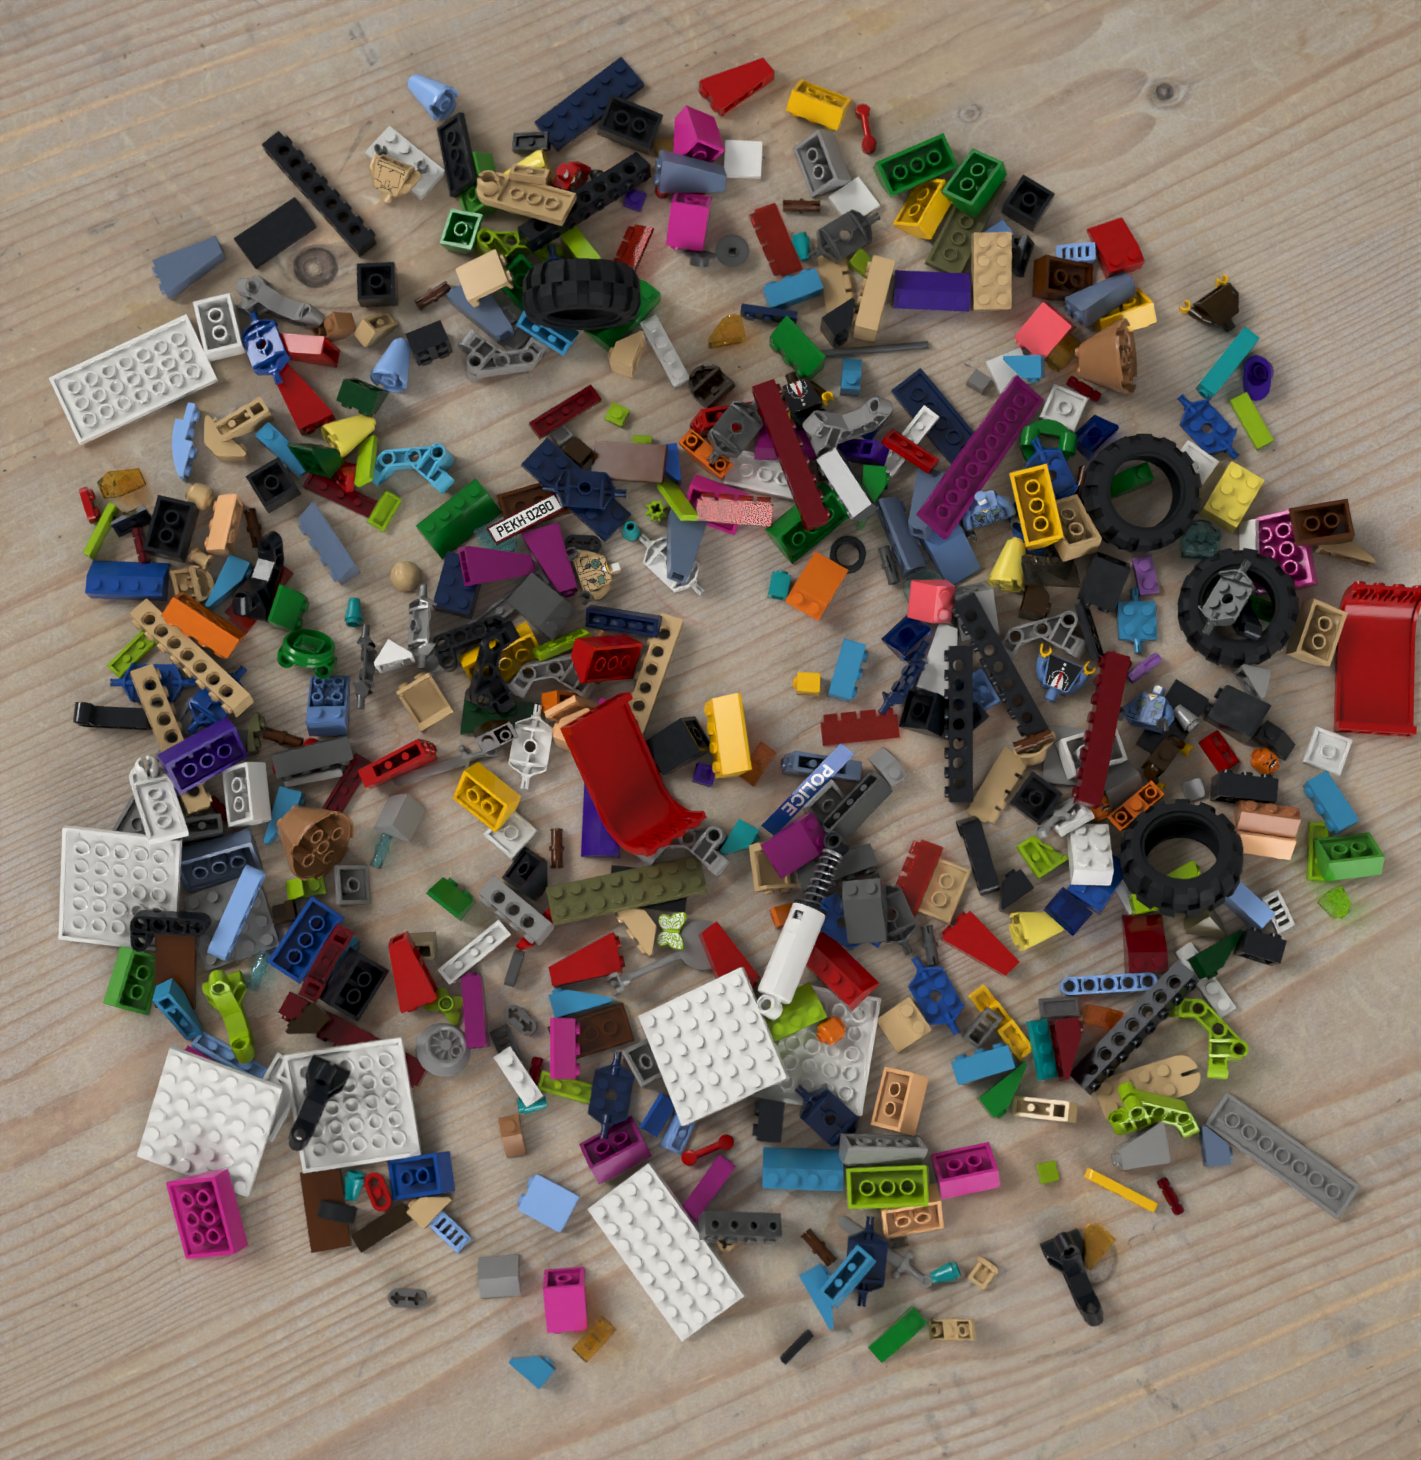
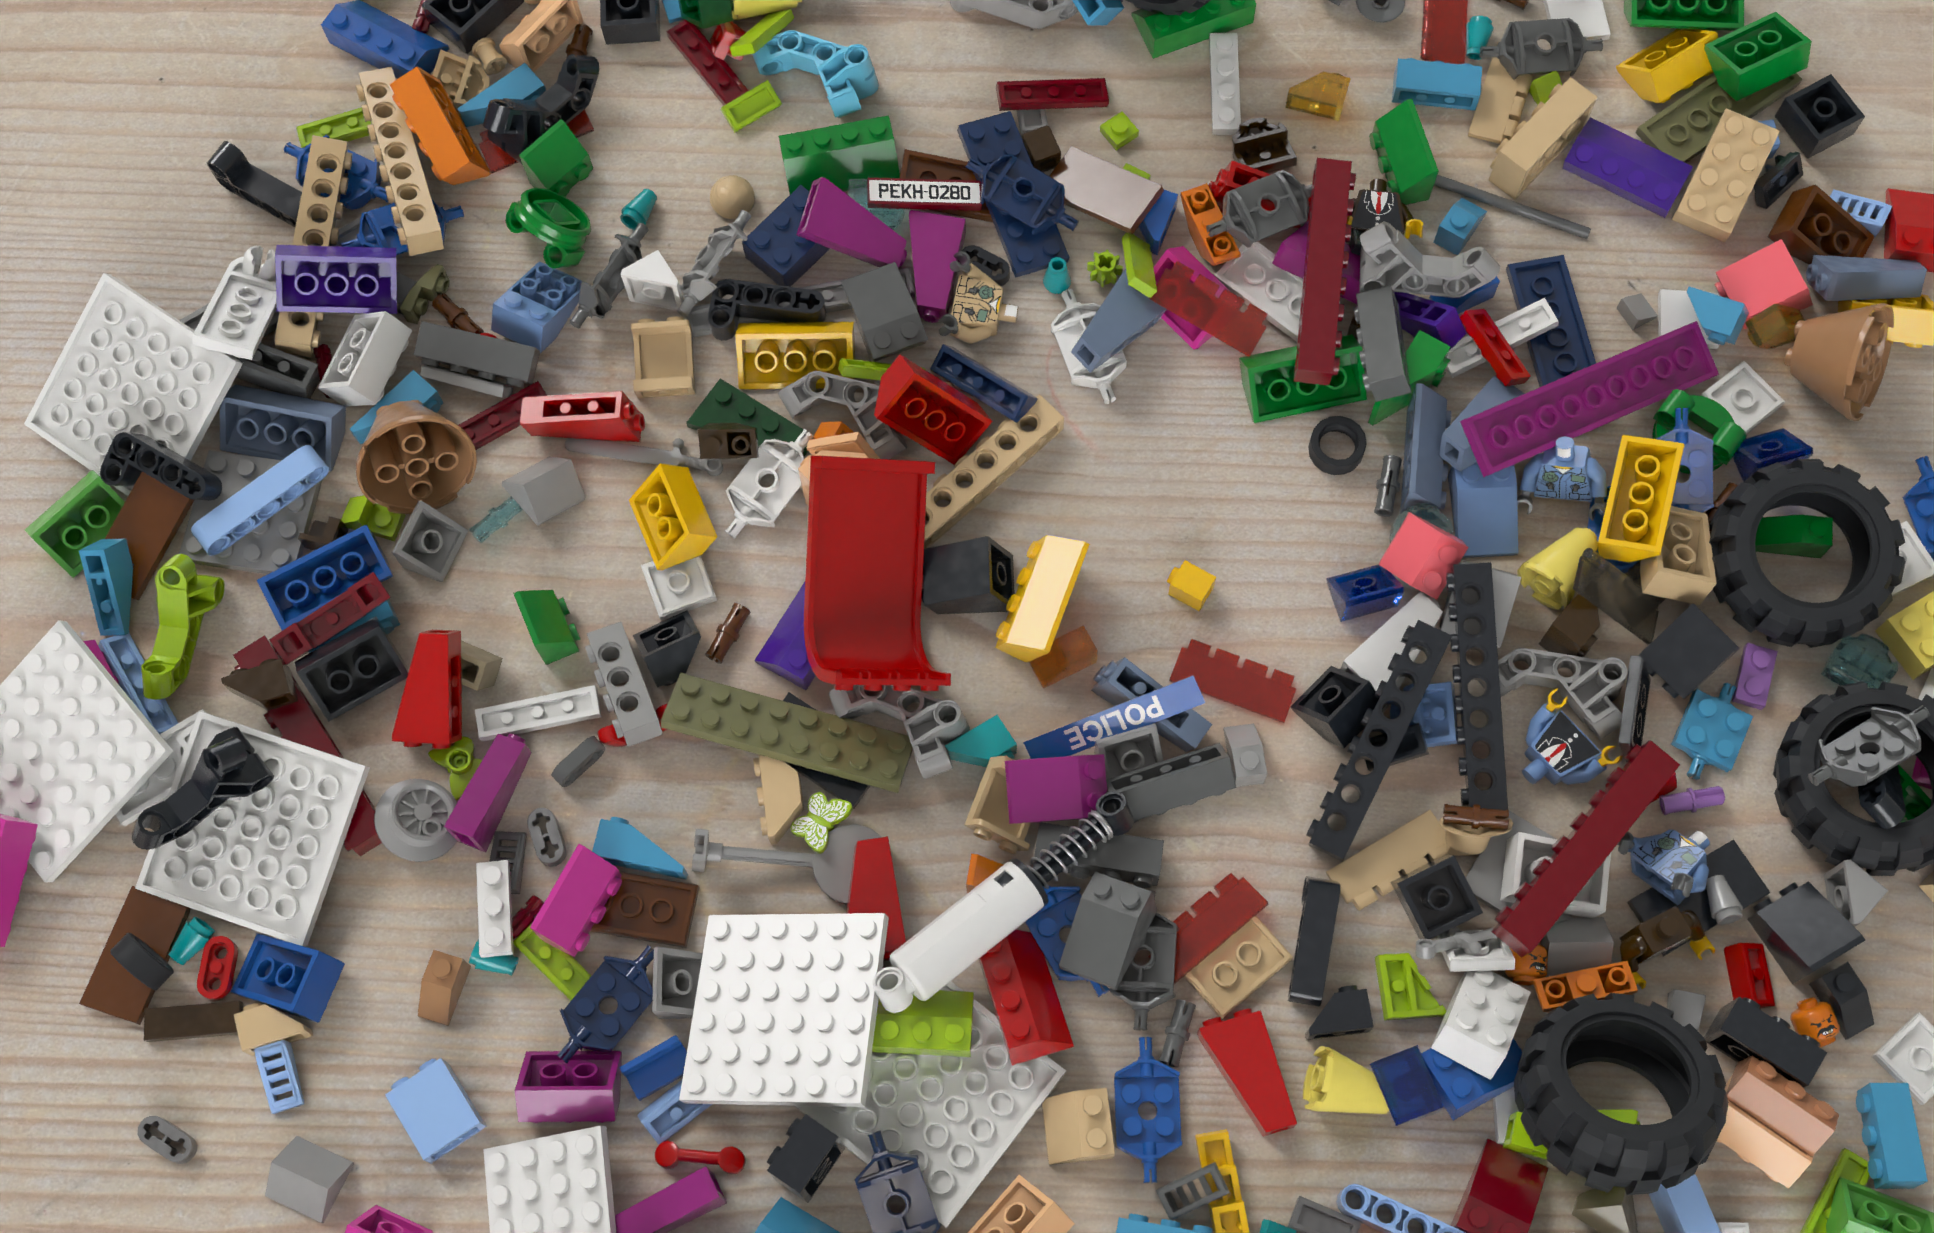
camera: 30 degrees right, 10 degrees down
(258, 971) = (241, 594): clear light blue pin -> none
(328, 545) = (655, 110): sand blue slope -> none
(491, 688) = (758, 373): black connector -> none
(588, 963) = (682, 805): red slope -> none
(626, 354) = (1172, 58): tan slope -> none
(703, 775) = (981, 635): dark purple plate -> none
(766, 314) = (1382, 93): dark blue plate -> none
(779, 585) = (1220, 440): teal brick -> none
(816, 586) = (1271, 462): orange slope -> none
(830, 1030) = (966, 1076): orange head -> none
(837, 323) = (1476, 144): black slope -> none
(847, 670) = (1256, 595): dark azure brick -> none
(909, 677) = (1342, 641): dark blue plate -> none
(1083, 389) = (1784, 387): dark red axle -> none

